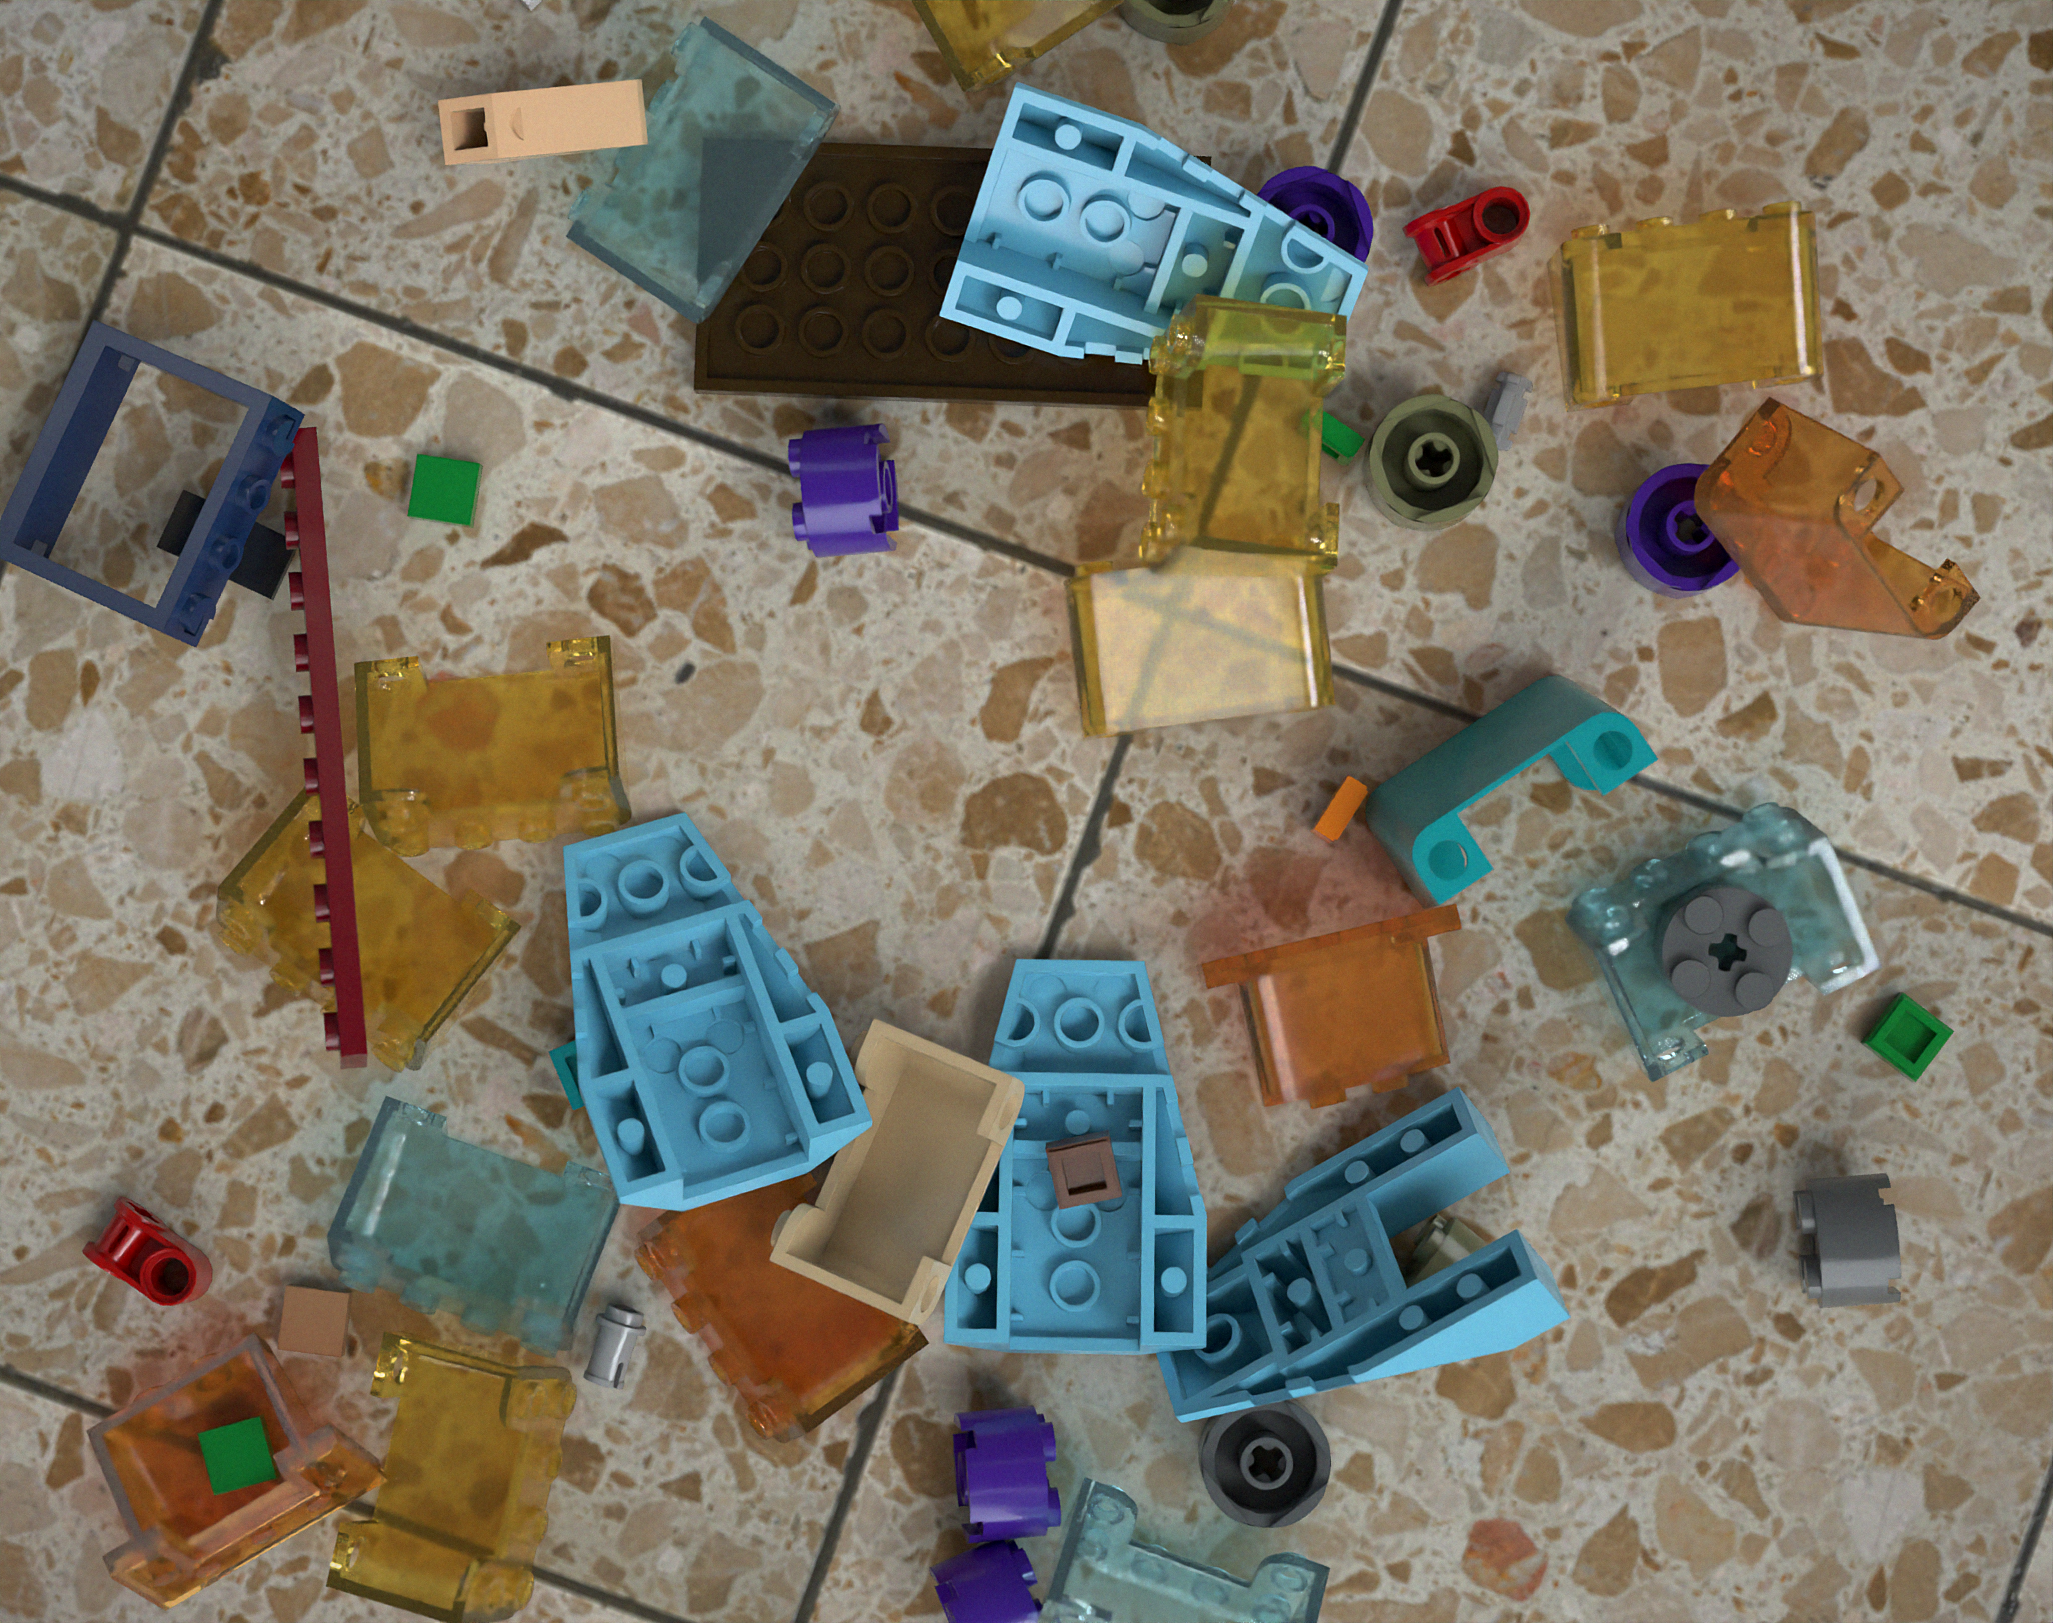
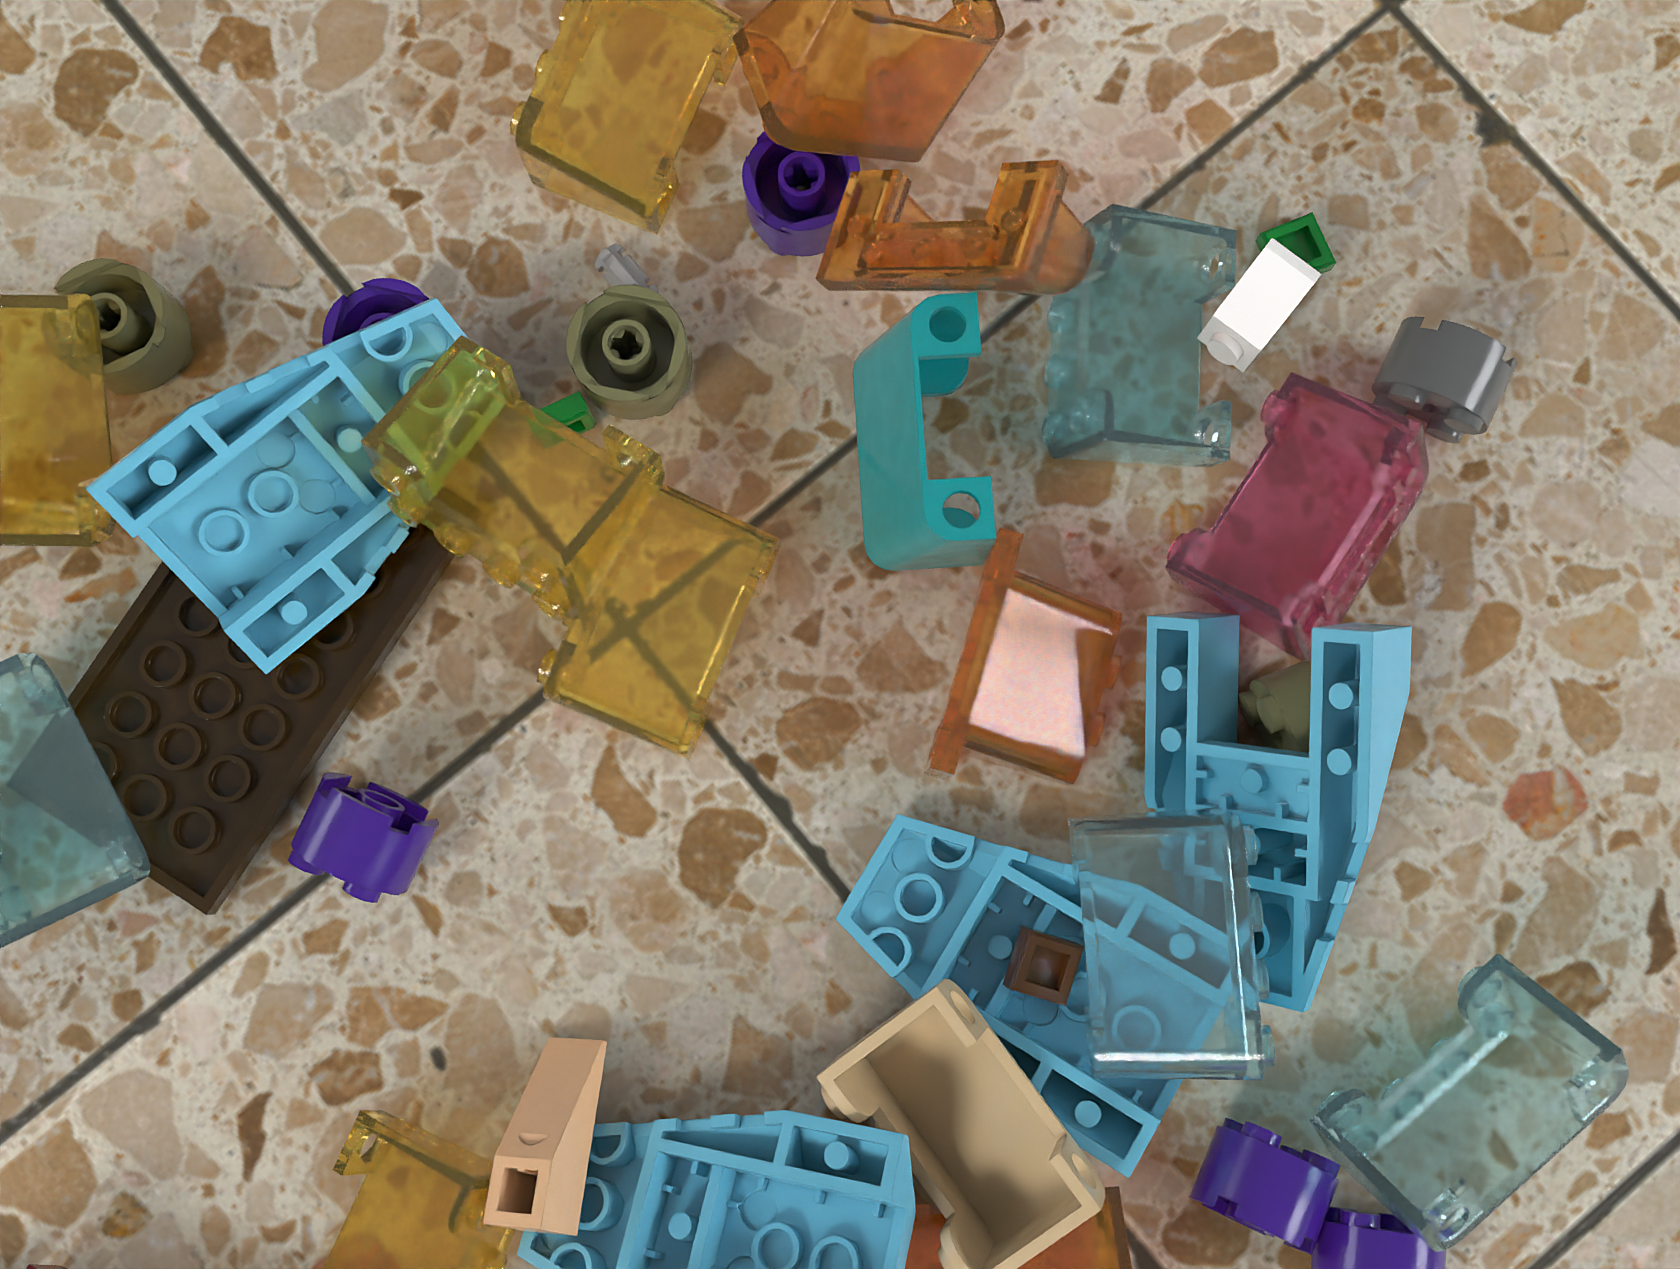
camera: 60 degrees left, 5 degrees down
(445, 491) = (162, 1176): green tile -> none
(678, 818) = (547, 1145): none -> light nougat slope
(1166, 1262) = (1171, 945): none -> clear light blue windscreen
(1257, 1495) = (1404, 963): dark grey brick -> none
(1339, 809) = (865, 584): orange tile -> none
(1465, 235) = (468, 234): red piece -> none
(1643, 1186) = (1307, 514): none -> clear pink windscreen
(1673, 668) = (1021, 247): none -> clear orange windscreen
(1741, 981) = (1179, 326): dark grey brick -> none
(1816, 1028) = (1258, 306): none -> white slope

